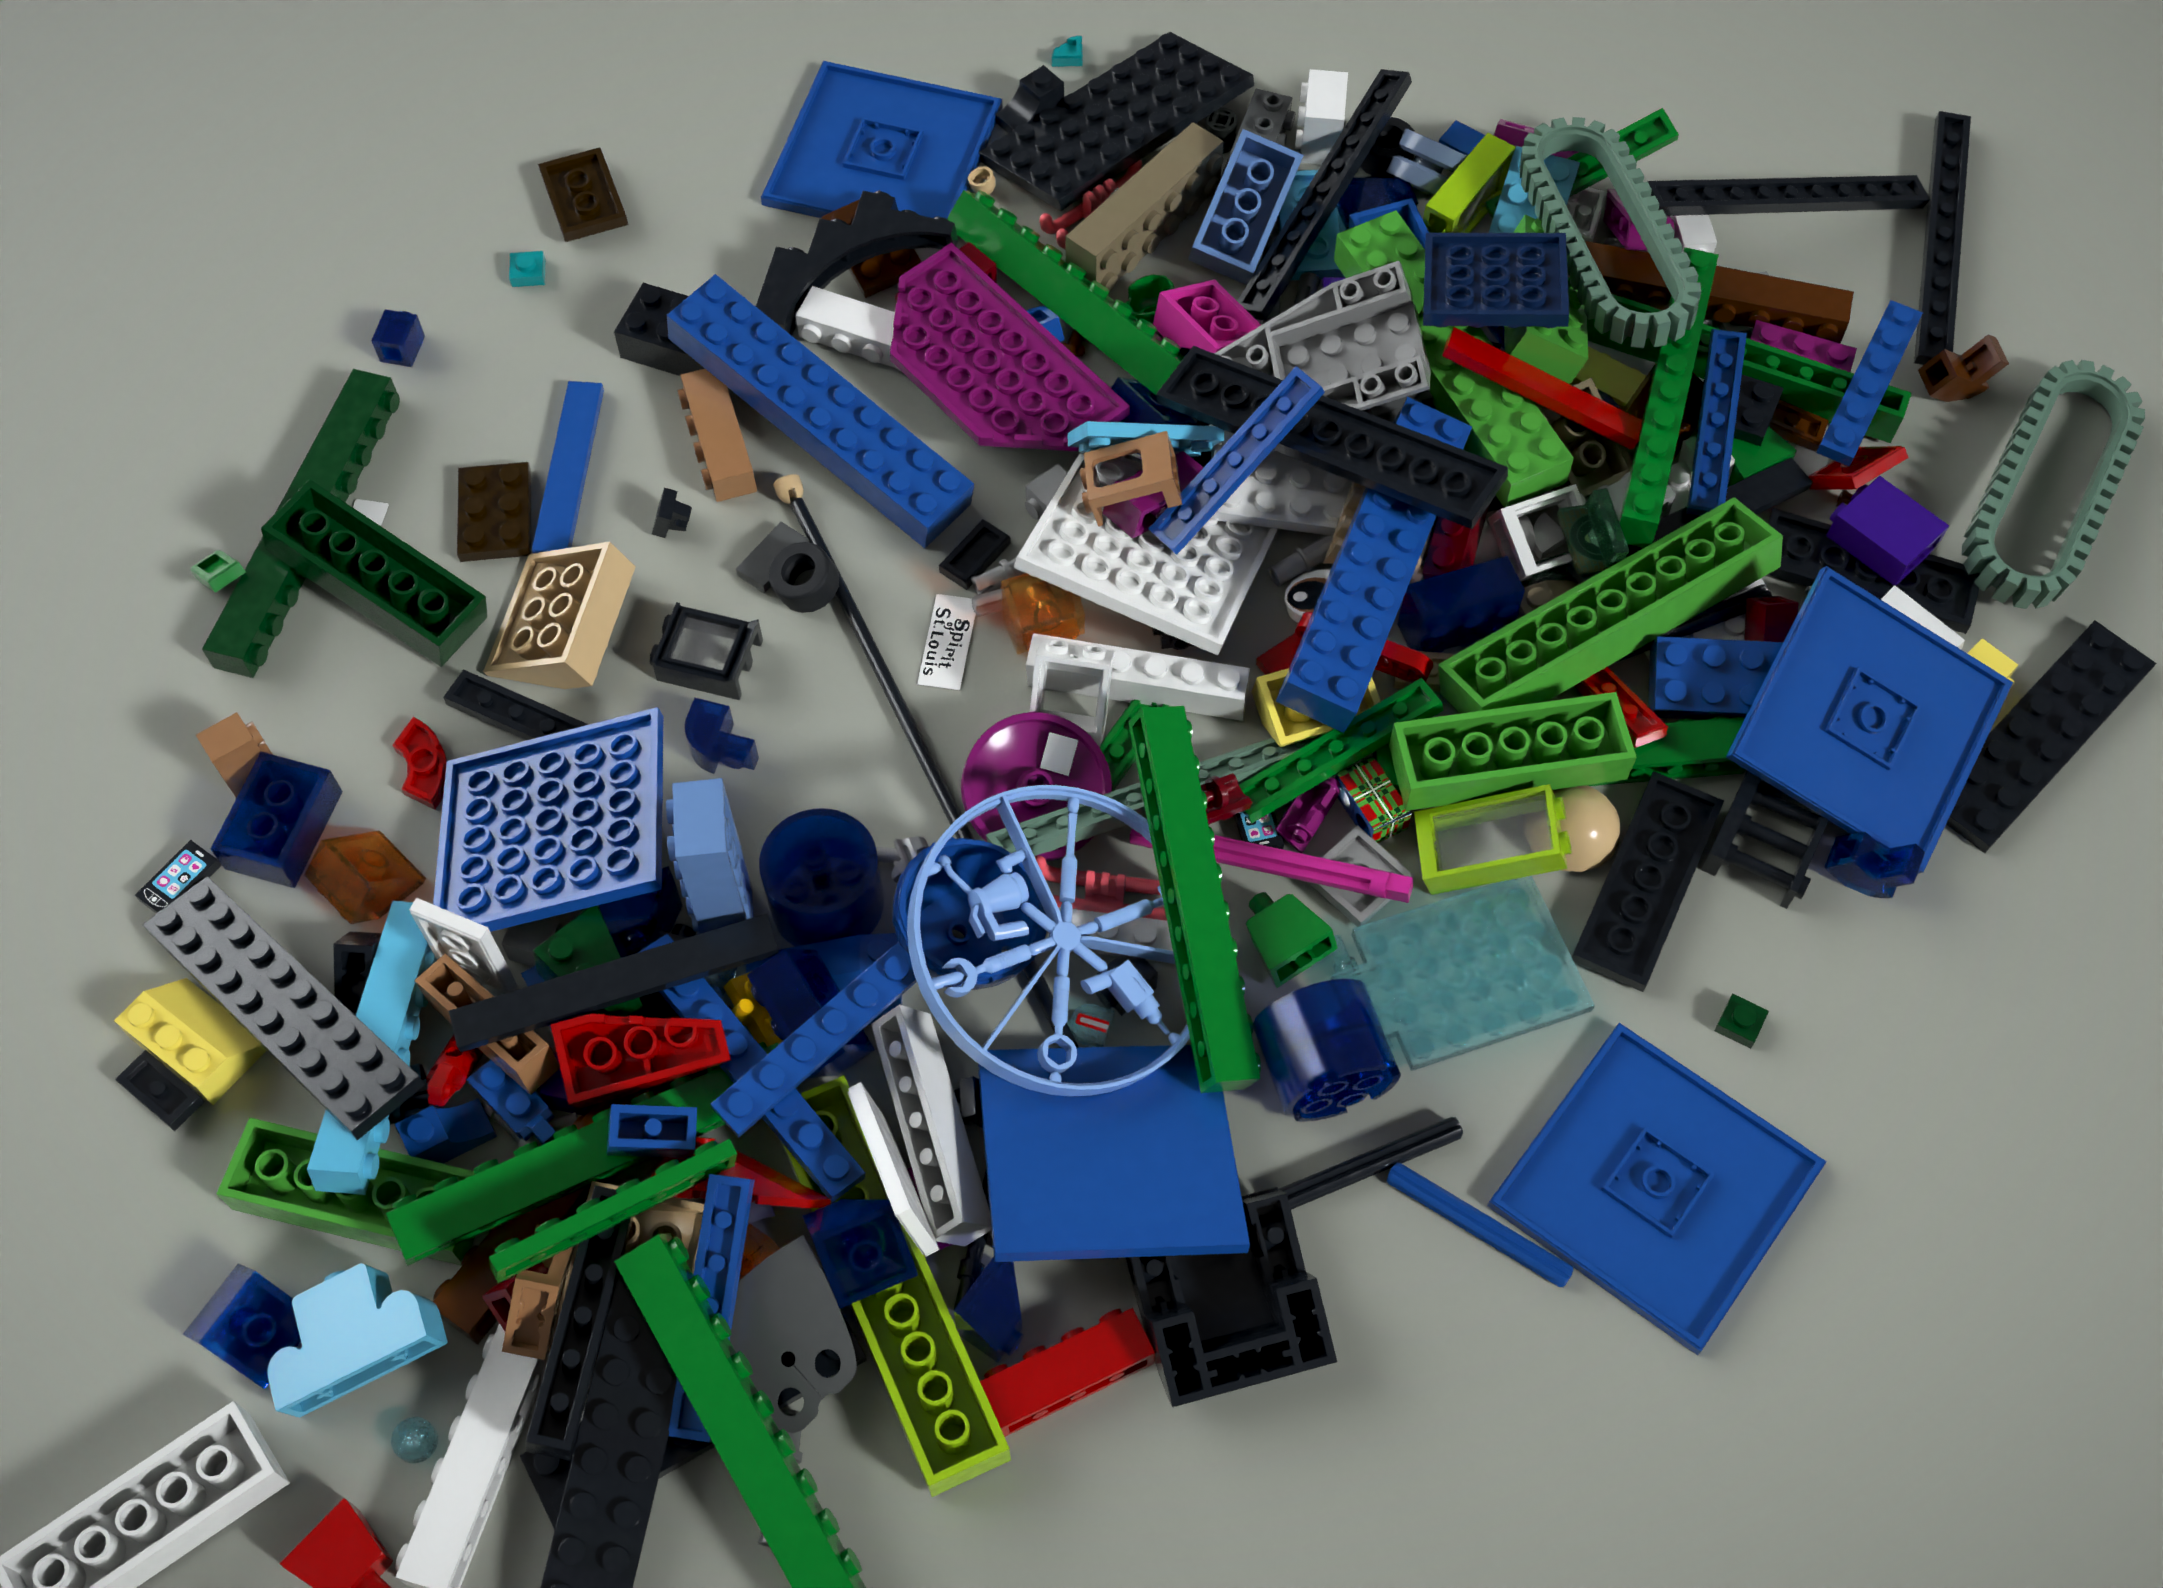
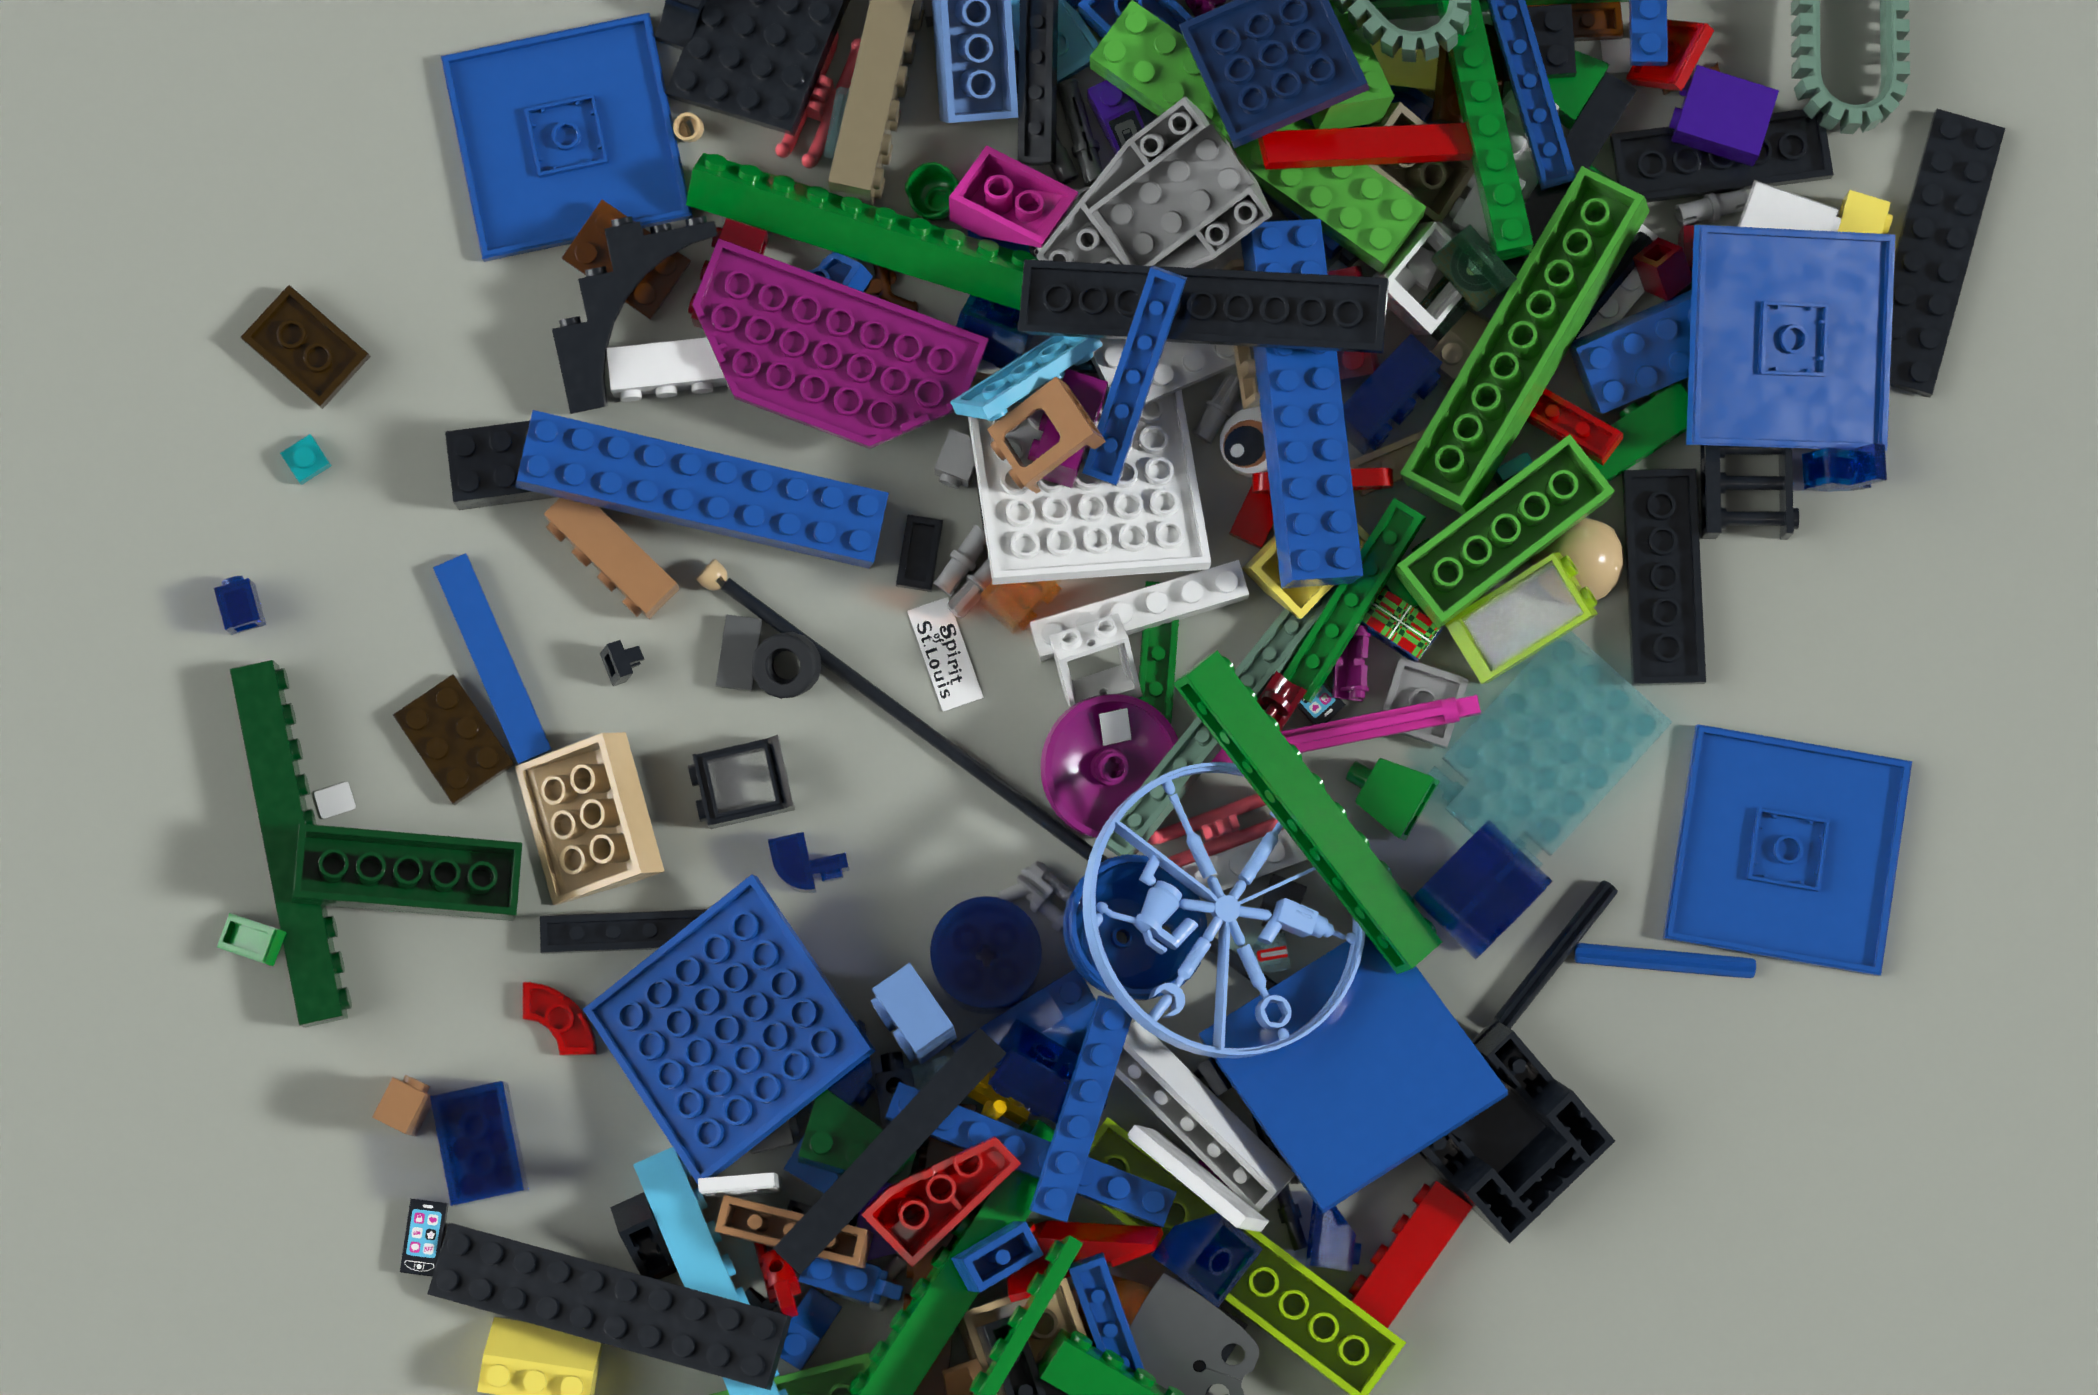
camera: 30 degrees left, 20 degrees up
(362, 875) = (585, 1150): clear orange slope -> none
(1741, 1021) = (1794, 668): dark green plate -> none

